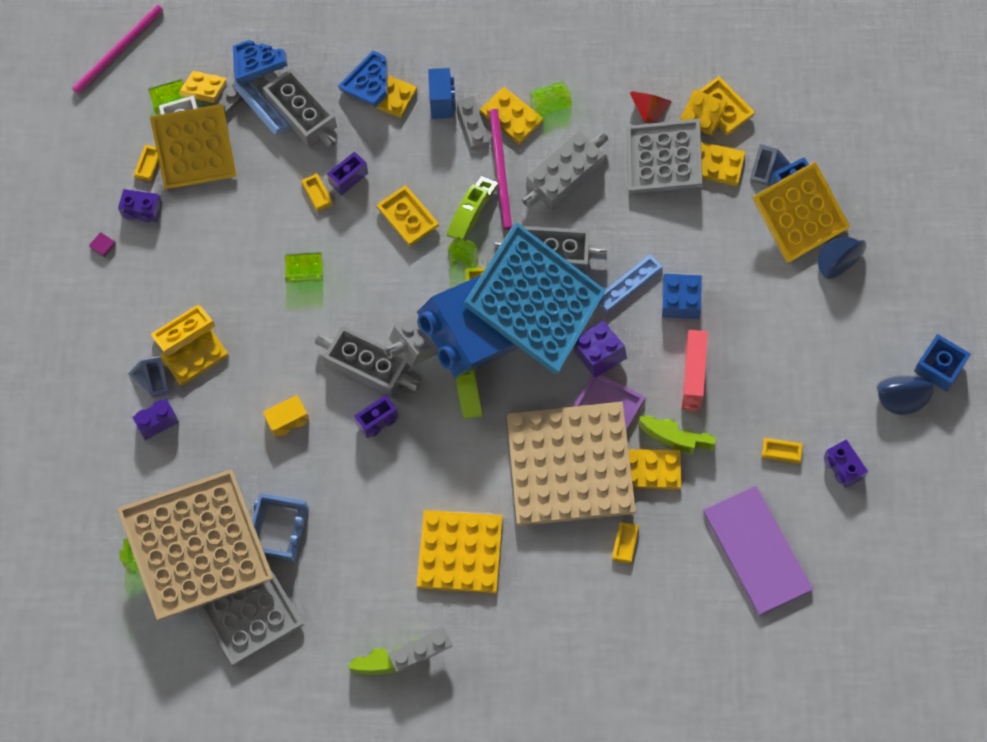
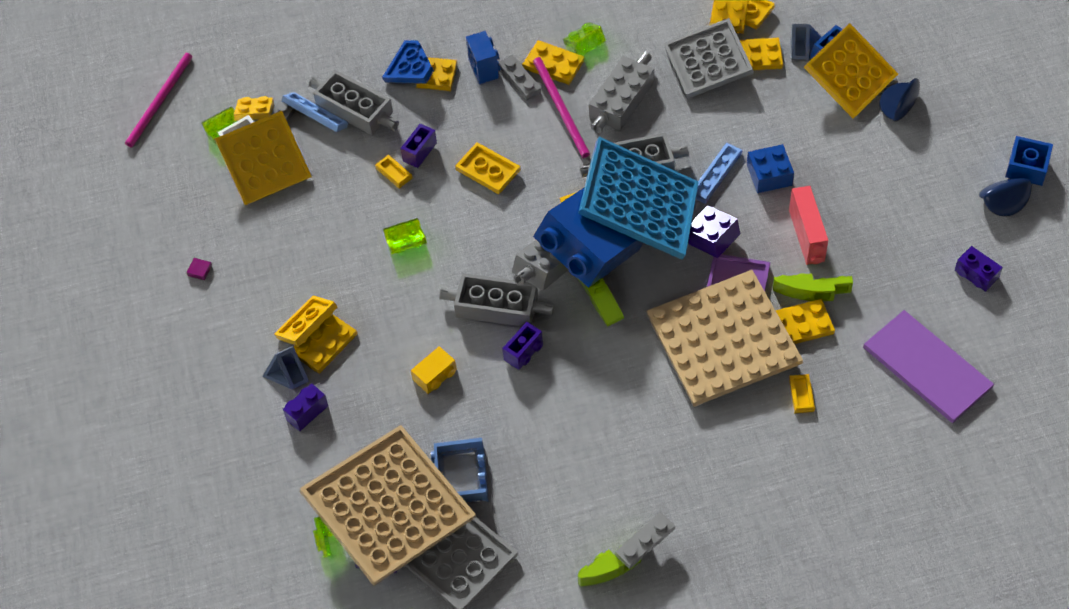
camera: 15 degrees left, 10 degrees down
(139, 205) = (226, 224): dark purple brick -> none
(147, 164) = (220, 188): yellow tile -> none
(256, 60) = (298, 73): blue plate -> none
(459, 551) = (647, 445): yellow plate -> none
(462, 251) = (553, 183): clear neon green bracket -> none
(470, 208) = (545, 146): lime slope -> none
(650, 106) = (677, 20): red slope -> none
(782, 450) = (914, 274): yellow tile -> none

